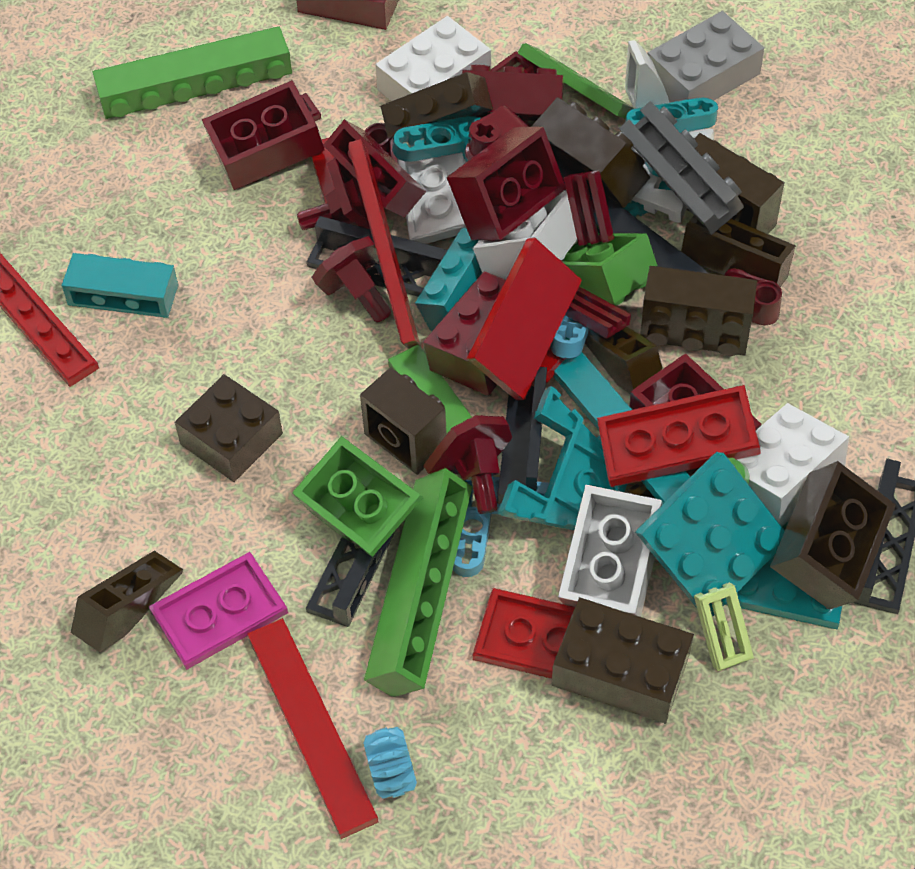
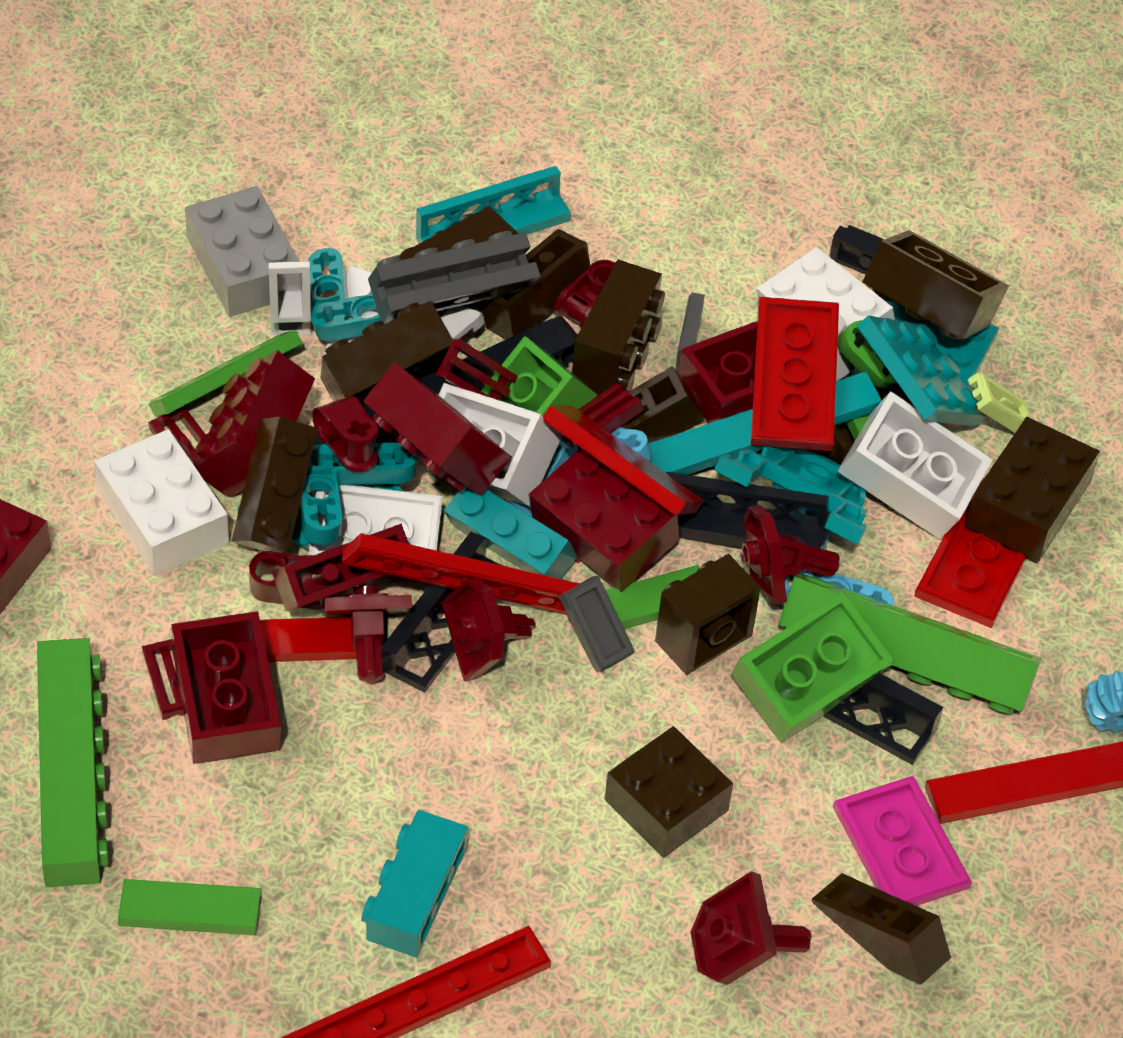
camera: 85 degrees left, 5 degrees down
(88, 167) = (189, 907): none -> bright green tile
(95, 489) = (737, 932): none -> dark red piece
(383, 349) = (596, 623): none -> dark grey tile
(737, 371) = (691, 323): none -> dark grey tile
(814, 218) = (523, 211): none -> teal fence

